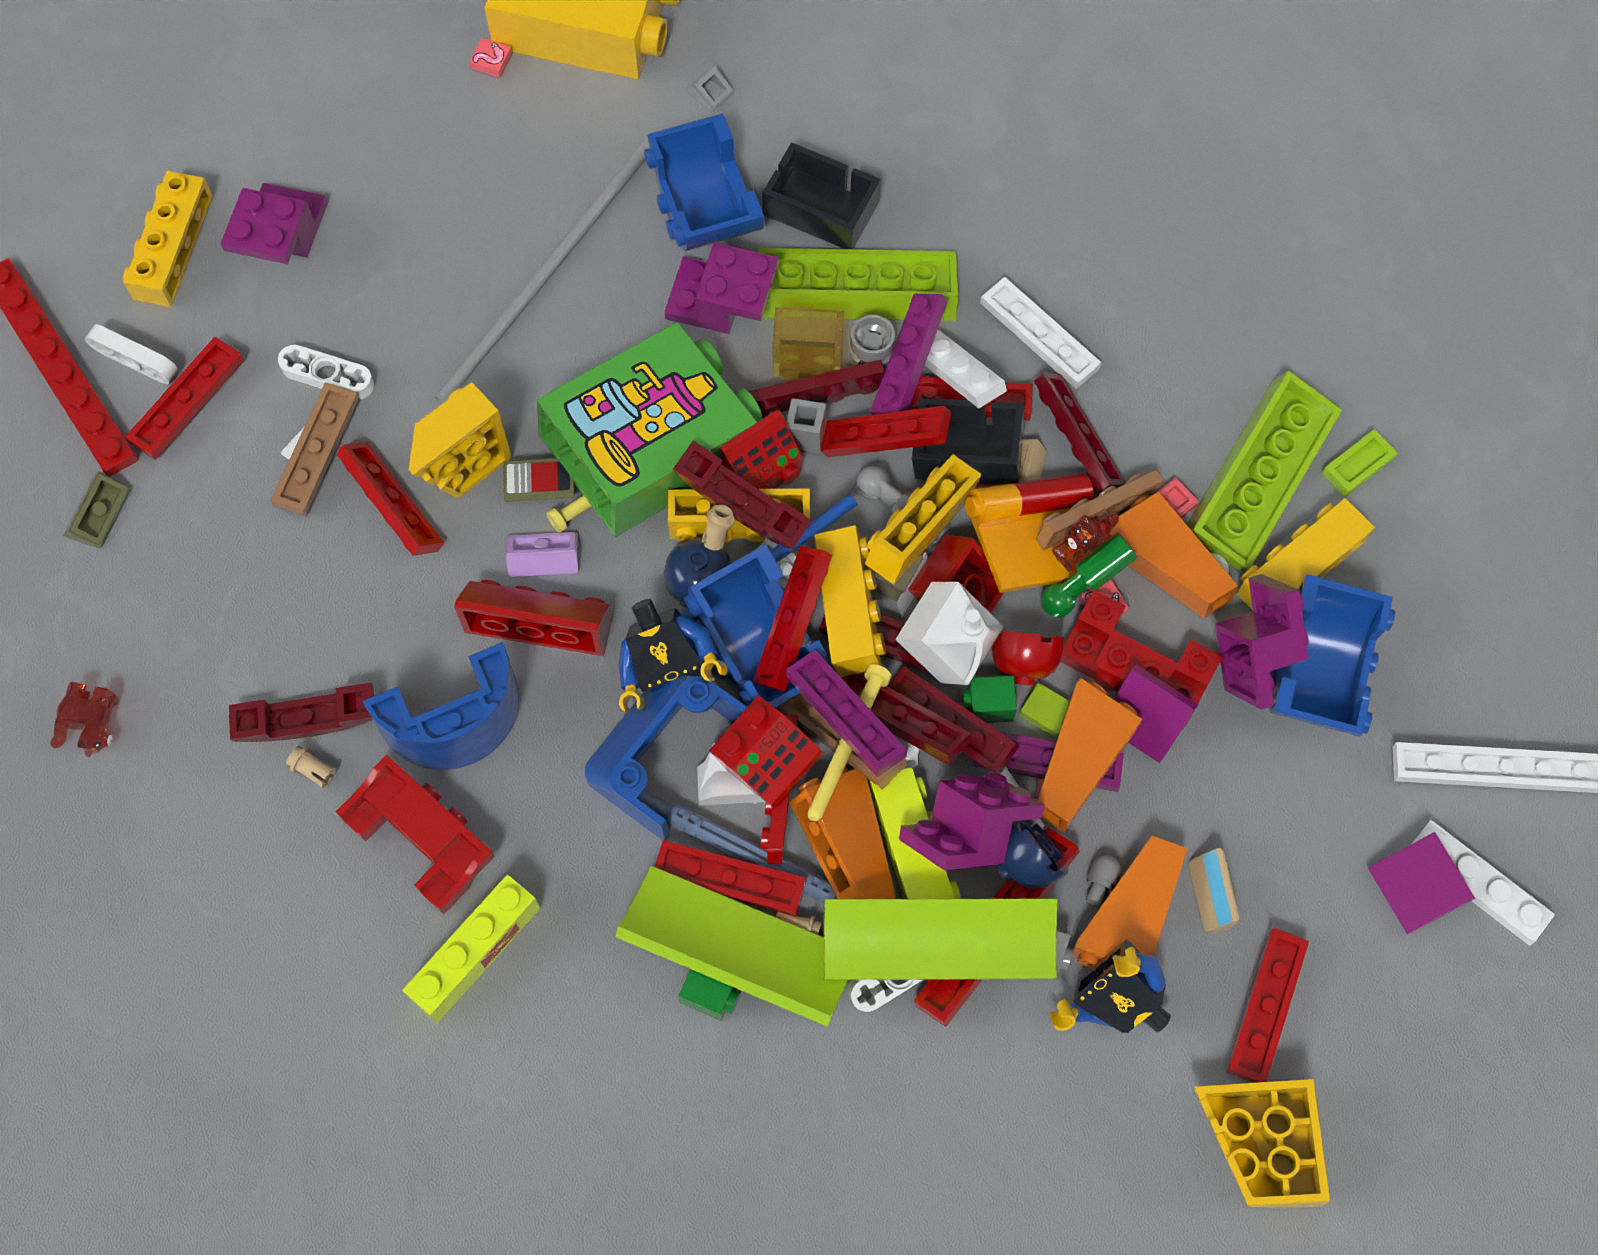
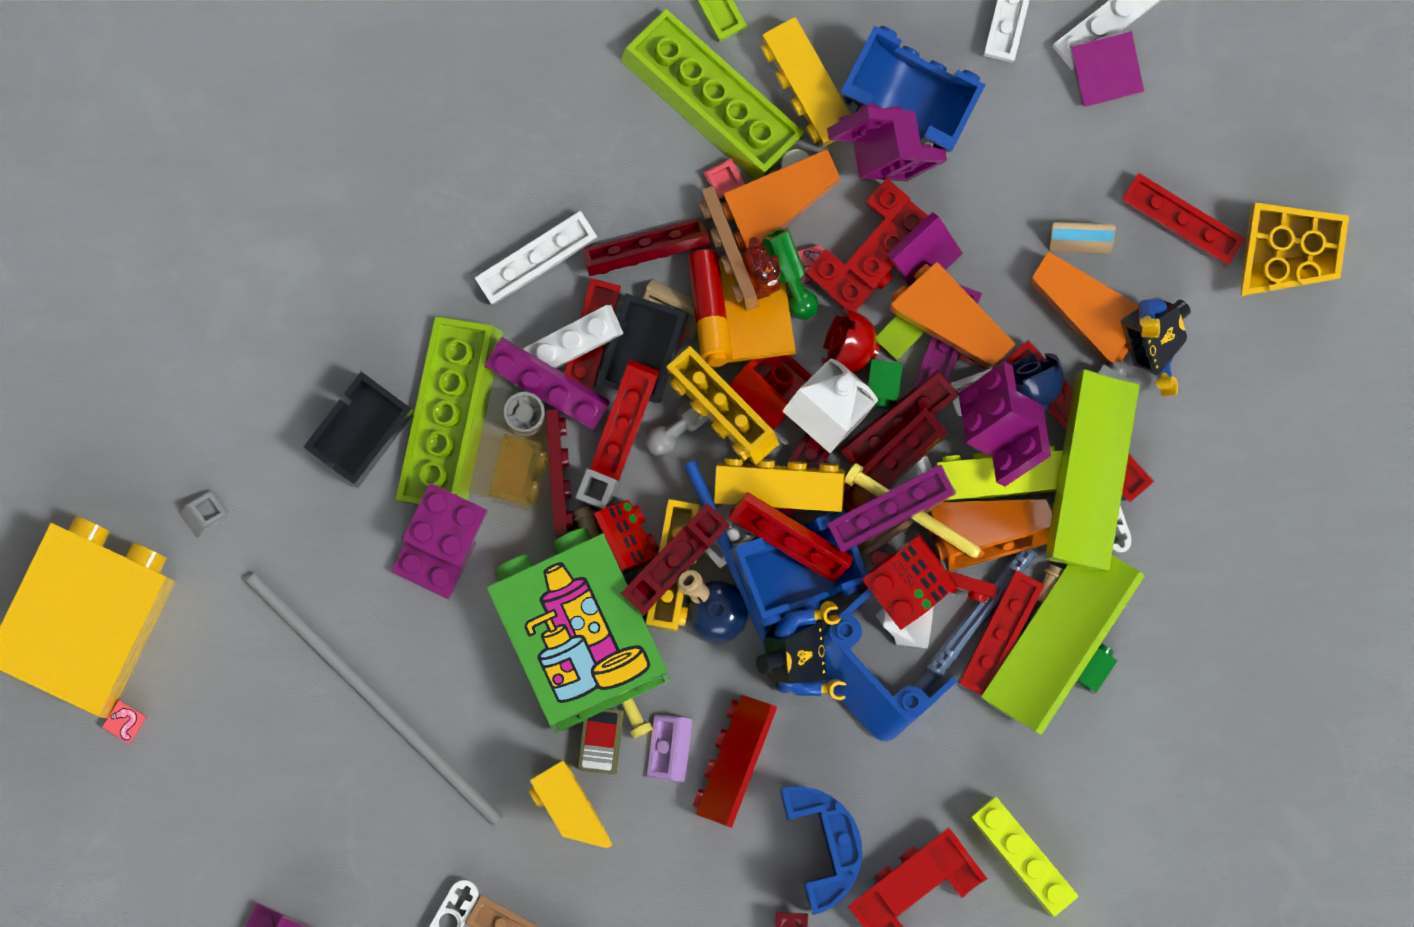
camera: 80 degrees left, 15 degrees up
(390, 498) = (593, 877): red plate -> none
(701, 184) = (335, 539): blue cylinder -> none
(1102, 878) = (1053, 325): light grey cylinder -> none

